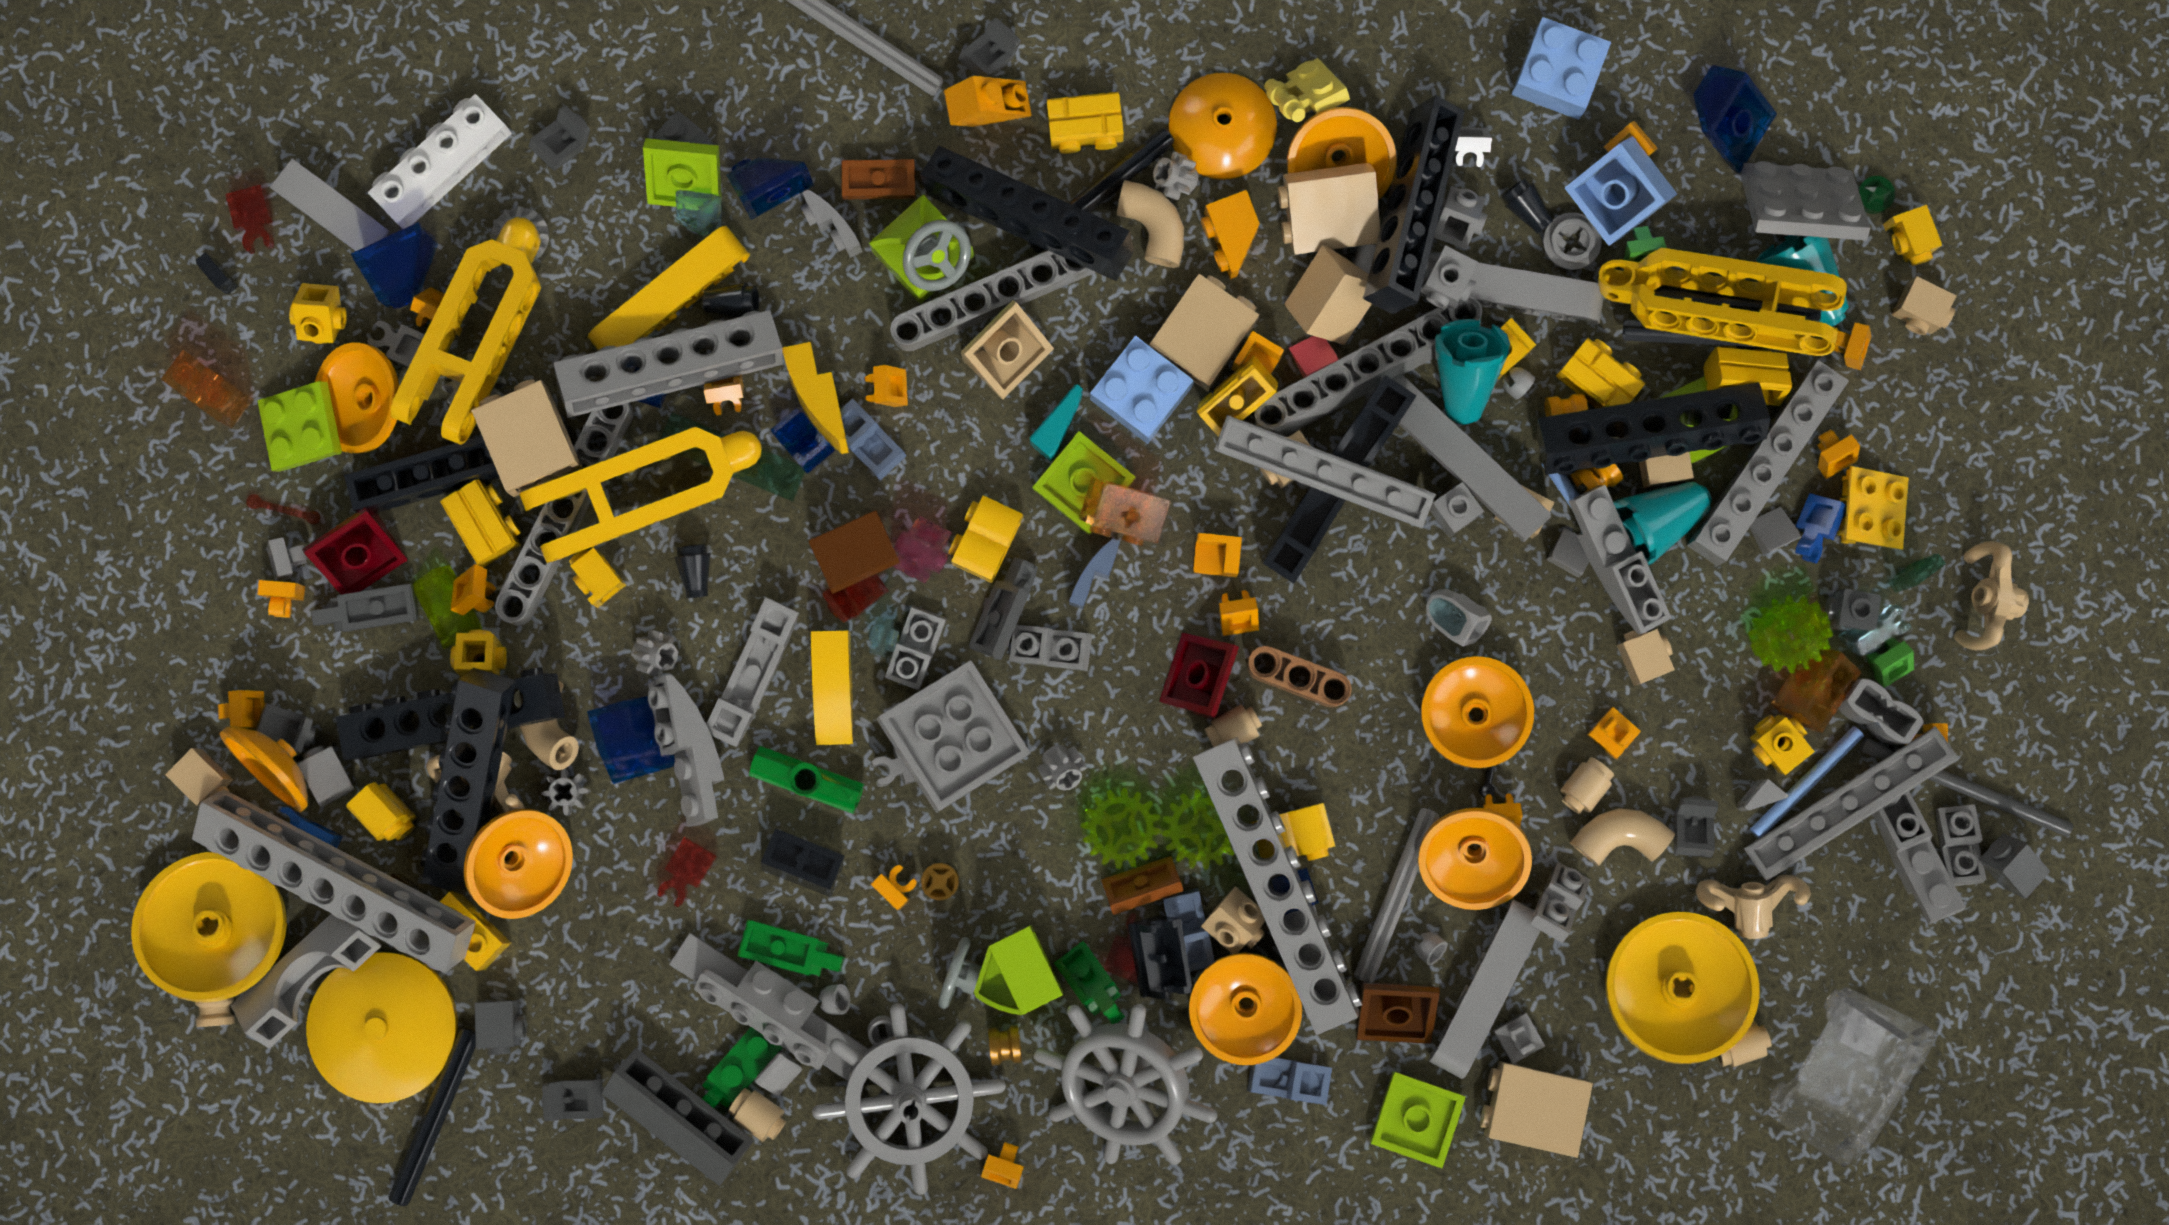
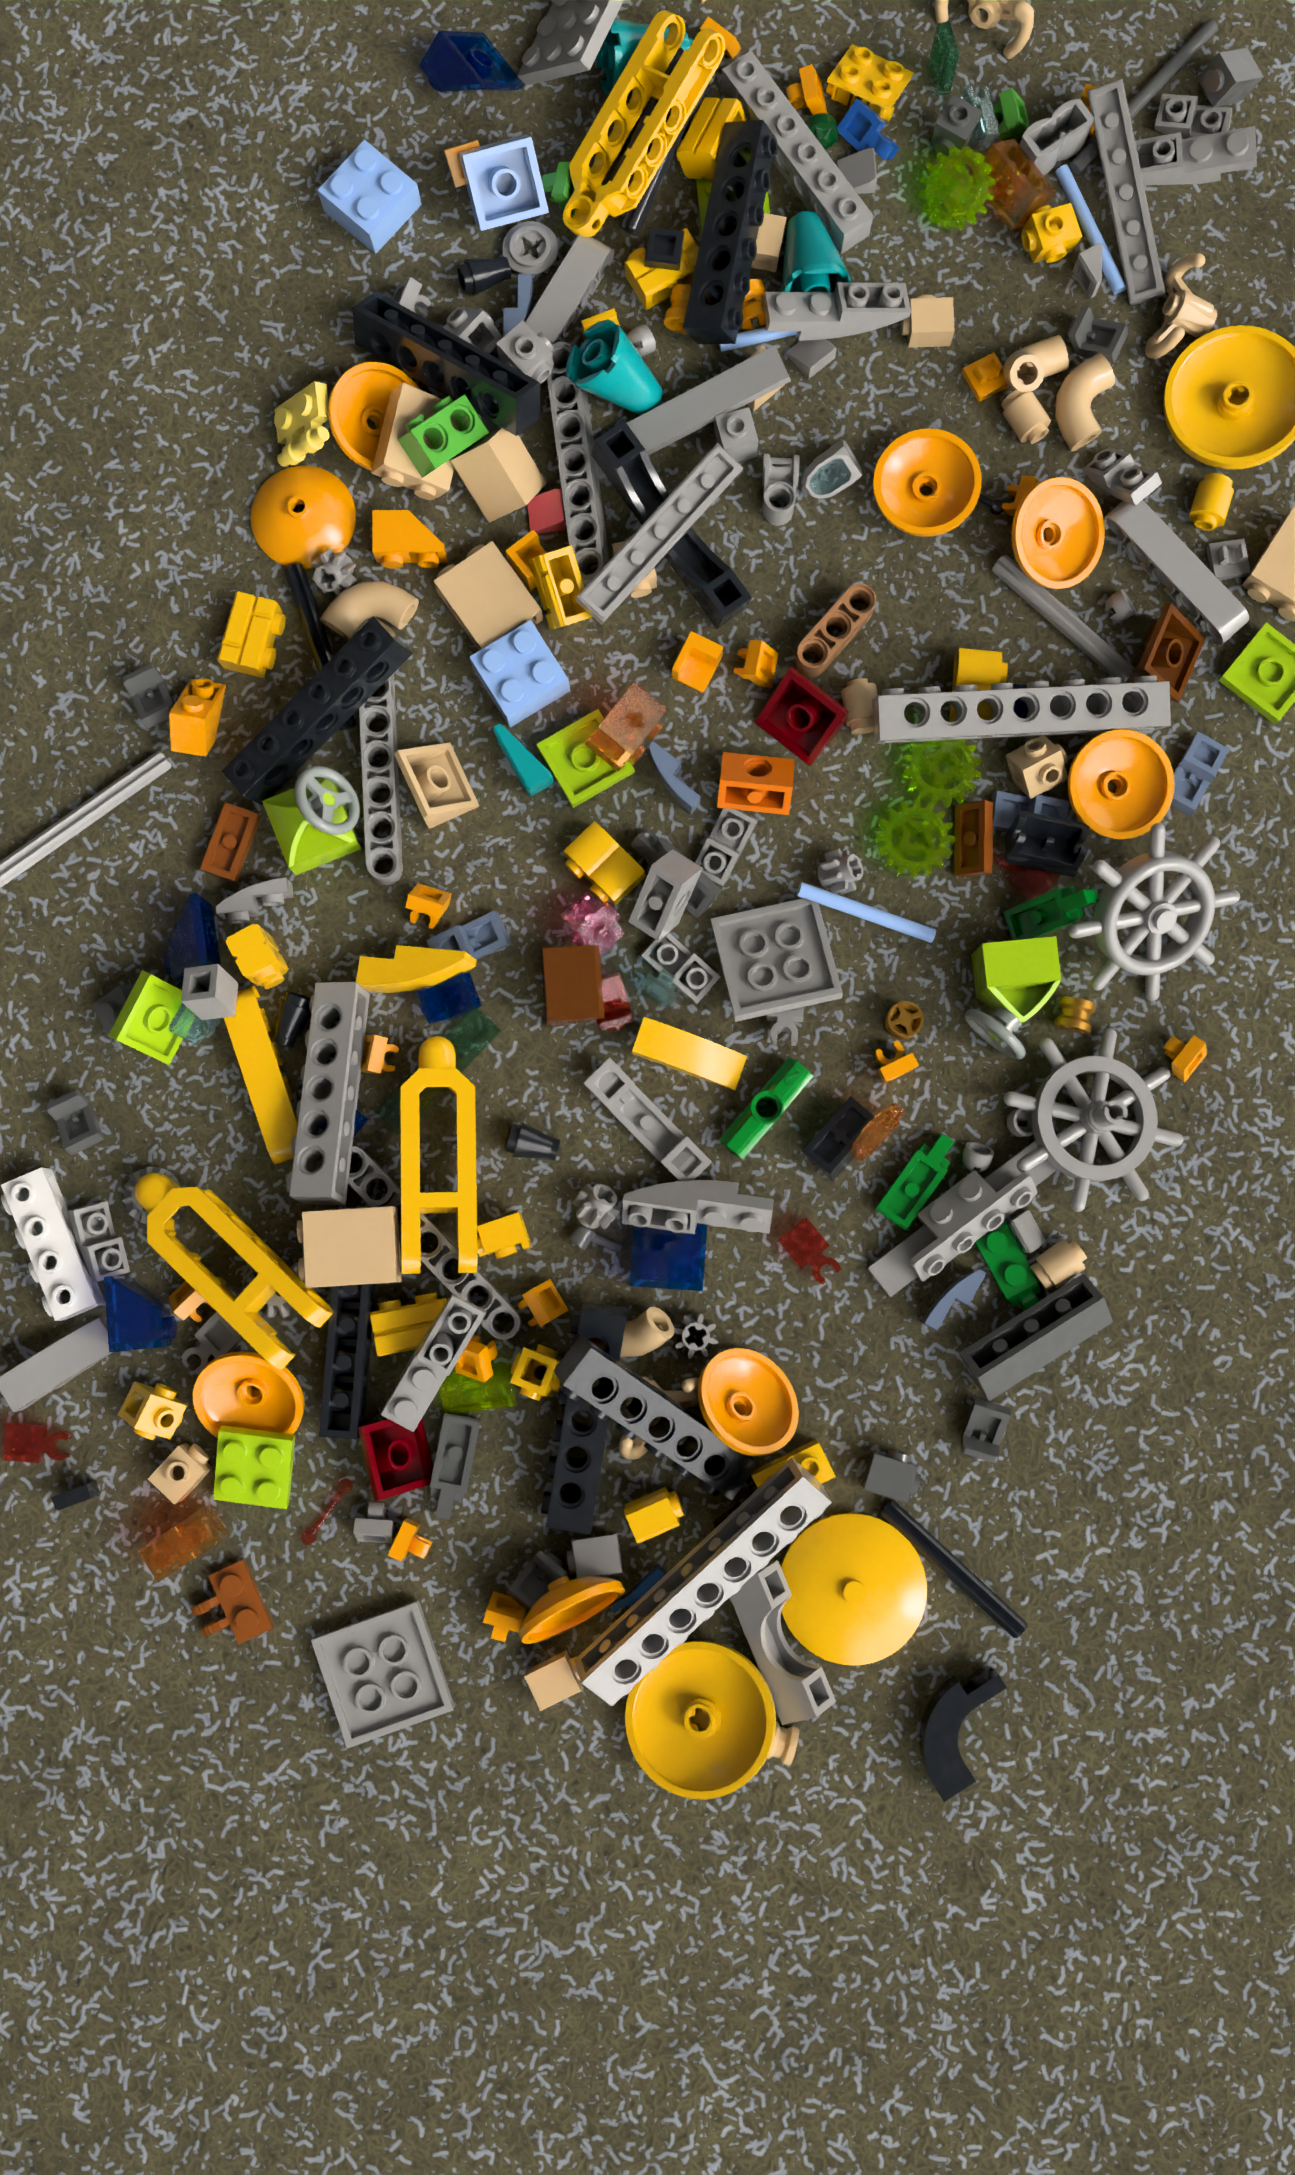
camera: 65 degrees left, 0 degrees up
(151, 617) = (382, 1674): none -> light grey plate
(172, 461) = (240, 1602): none -> dark orange hinge
(253, 1167) = (942, 1725): none -> black arch
(271, 361) = (181, 1472): none -> tan brick
(448, 553) = (432, 1361): none -> light grey slope
(457, 202) = (97, 1241): none -> light grey slope
(546, 638) = (544, 1303): none -> light orange tile
(622, 651) = (583, 1236): none -> dark grey hand
(697, 1029) = (961, 1291): none -> sand blue slope
(720, 215) = (209, 992): none -> light grey brick
(774, 247) = (257, 956): none -> yellow brick
(819, 893) = (877, 1131): none -> clear orange wheel
(972, 607) = (665, 894): none -> light grey brick
(1031, 807) = (866, 912): none -> light blue bar
(1117, 654) = (756, 783): none -> orange brick
(1333, 235) = (444, 437): none -> bright green brick
(1429, 569) = (780, 484): none -> light grey piece
(1490, 253) = (514, 316): none -> sand blue slope
(1569, 1000) = (1211, 501): none -> yellow brick
(1613, 370) = (664, 248): none -> black tile
(1640, 771) = (1029, 365): none -> tan cylinder
(1800, 479) = (823, 128): none -> dark green tile

